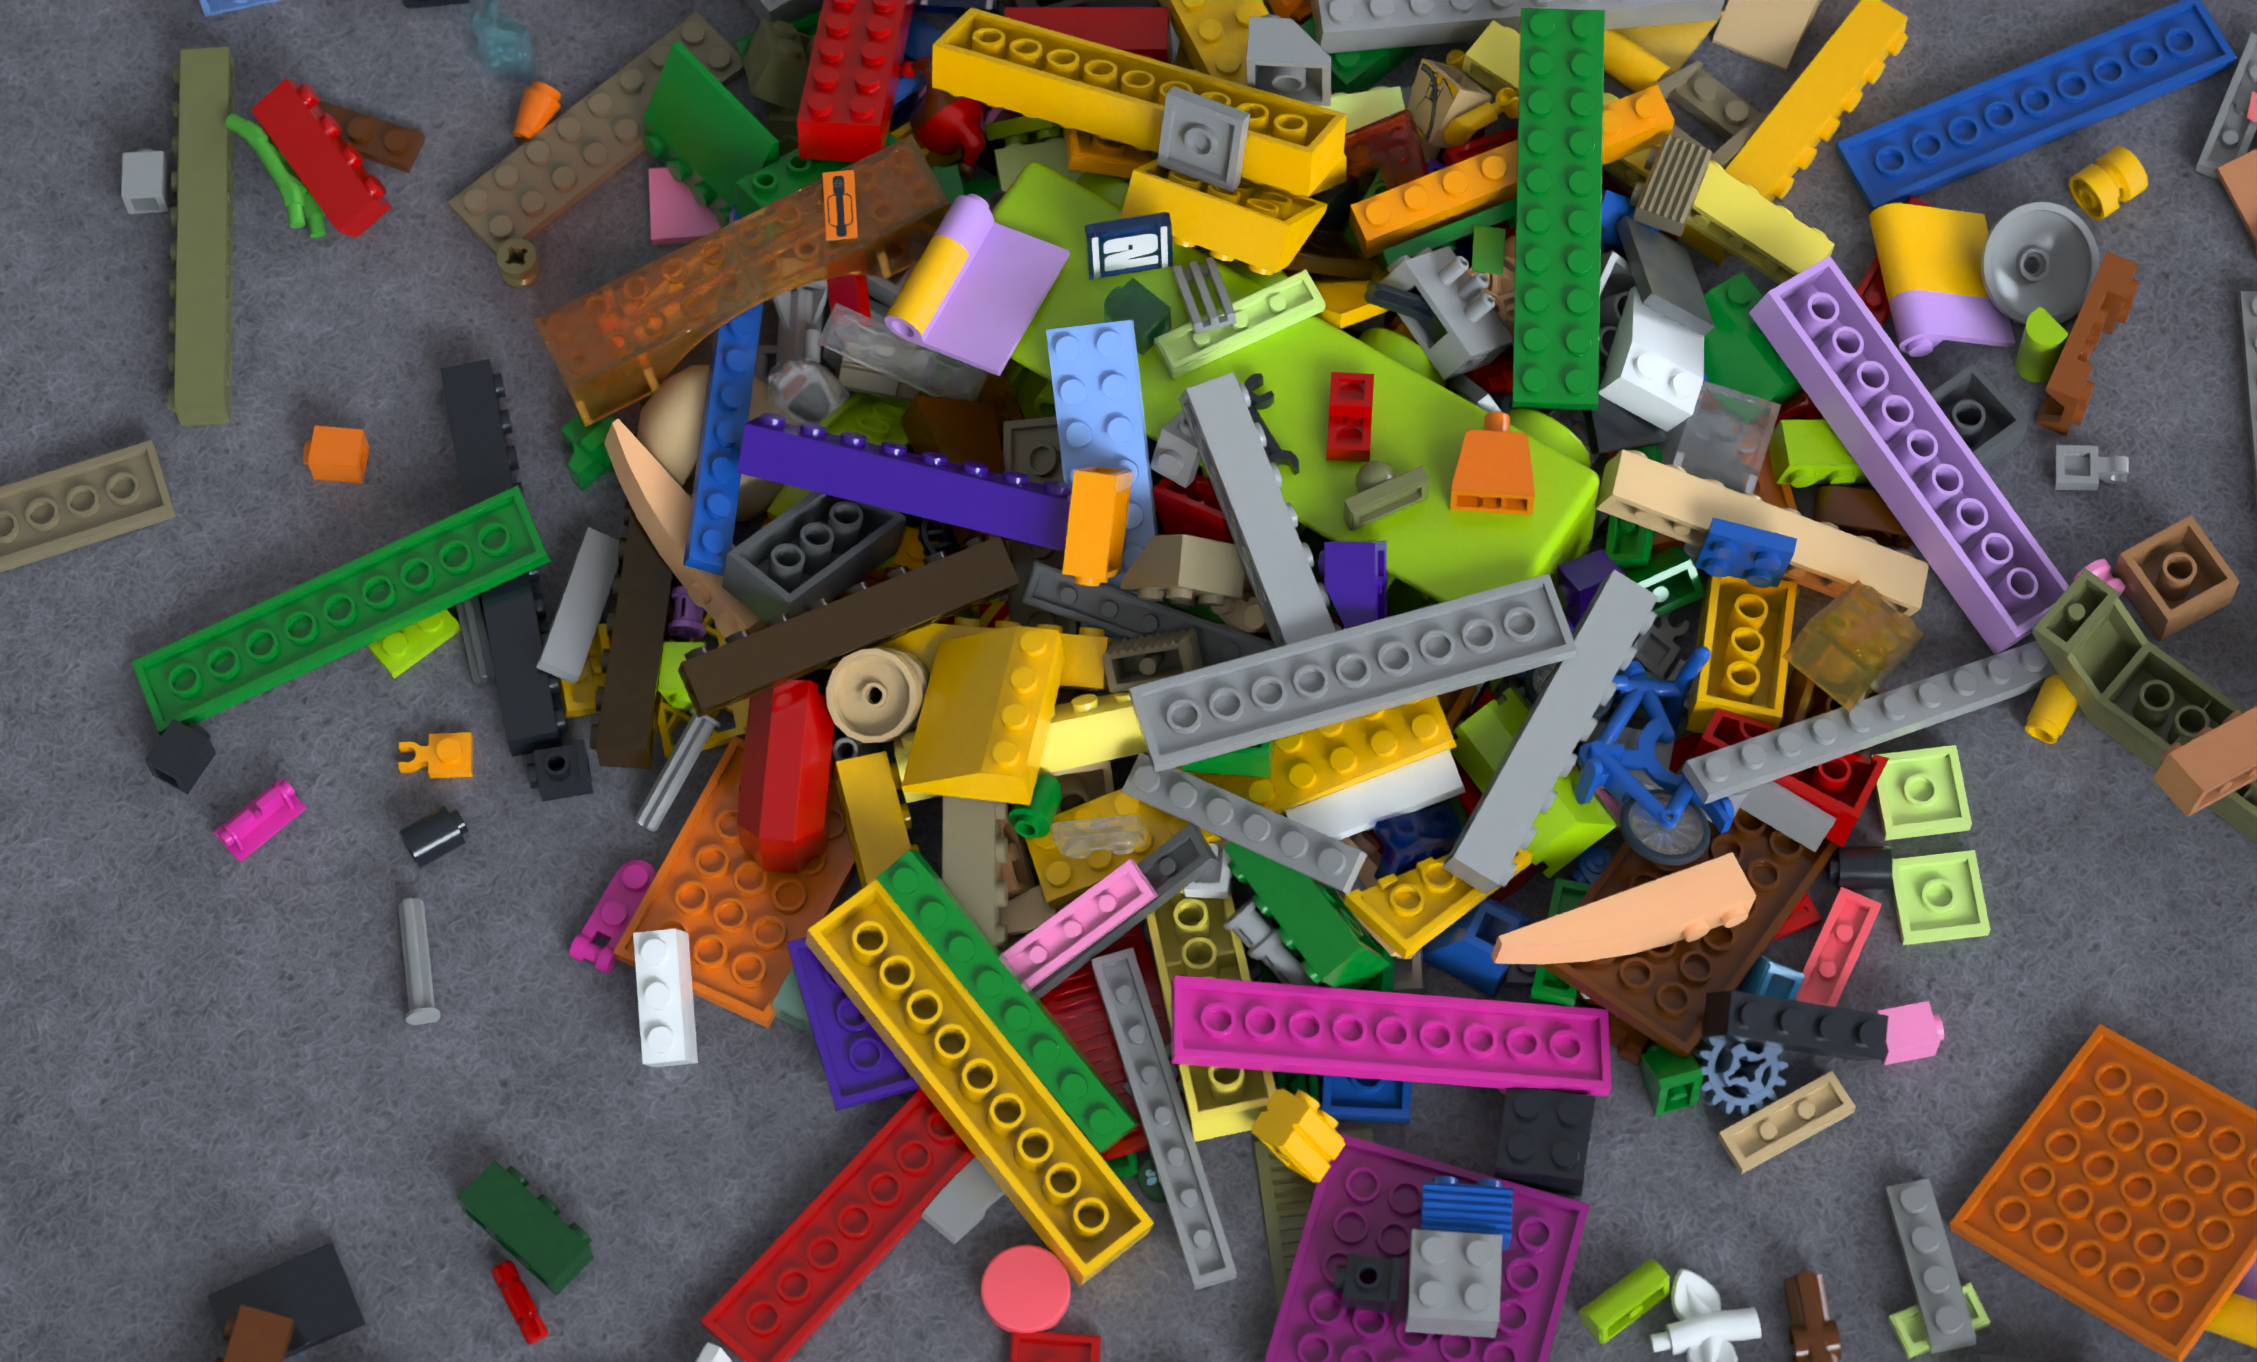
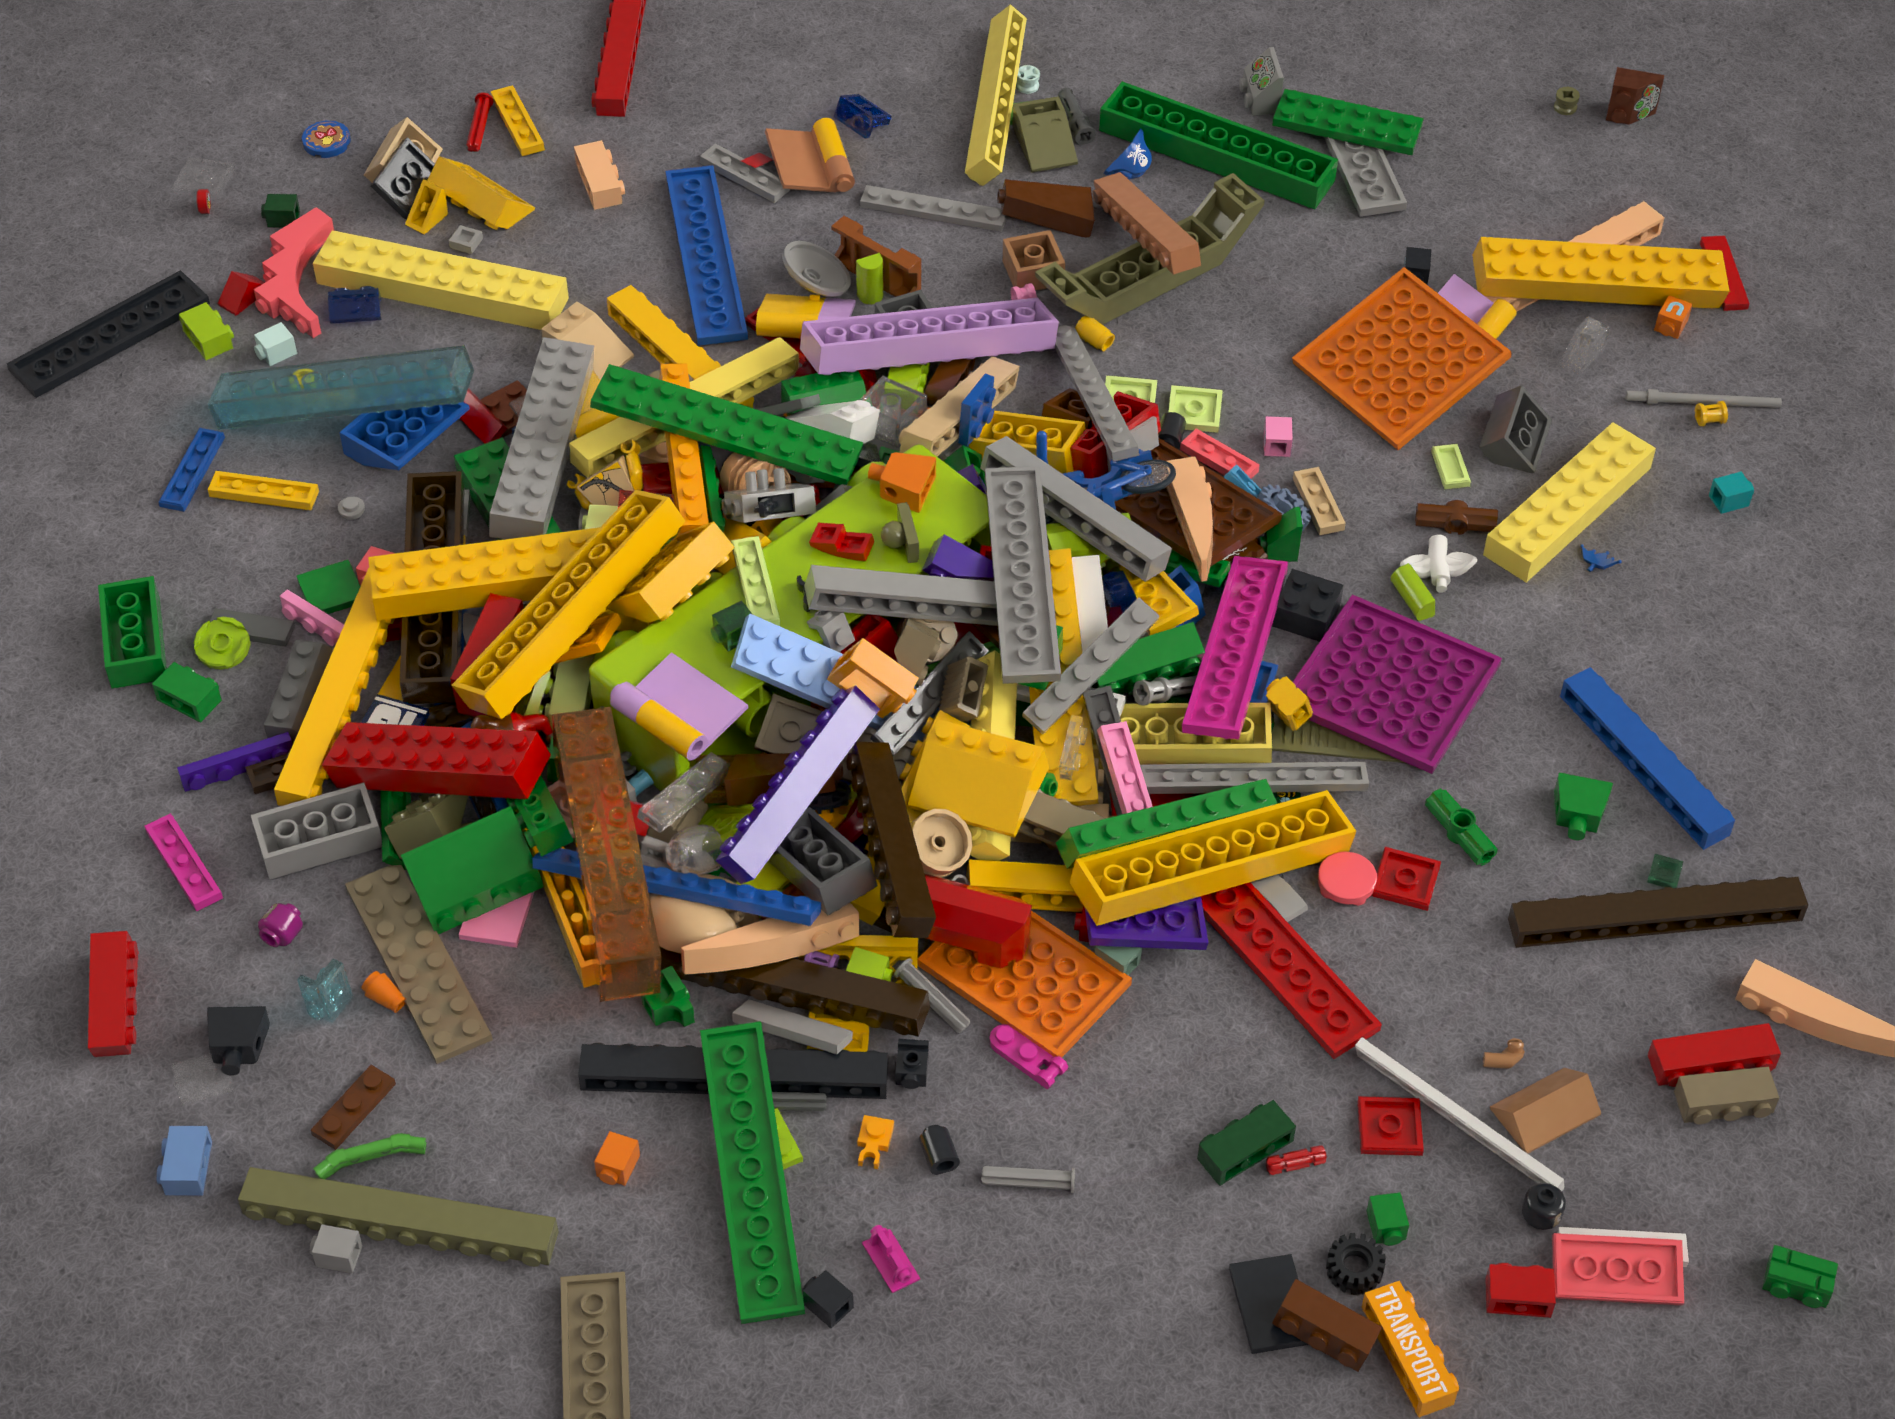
camera: 80 degrees left, 15 degrees down
(322, 157) = (370, 1122): red brick -> none
(517, 273) = (503, 1031): olive wheel -> none
(665, 998) = (1105, 1023): white brick -> none
(840, 205) = (590, 762): orange sticker -> none
(1129, 245) = (687, 612): tile -> none
(1197, 273) = (731, 587): light grey tile -> none
(1203, 138) = (631, 553): light grey plate -> none
(1287, 61) = (578, 515): light grey slope -> none
(1375, 1297) = (1388, 694): black brick -> none
(1453, 1283) = (1396, 655): light grey brick -> none
(1467, 1208) = (1353, 642): blue brick -> none
(1488, 249) = (735, 471): bright green sticker -> none
(1672, 184) = (720, 382): dark tan brick -> none
(1795, 1026) = (1273, 467): black brick -> none
(1853, 645) = (1046, 382): clear yellow brick -> none
(1930, 1266) = (1420, 458): light grey plate -> none
(2081, 468) = (947, 288): light grey plate -> none
(2112, 179) = (771, 232): yellow wheel -> none

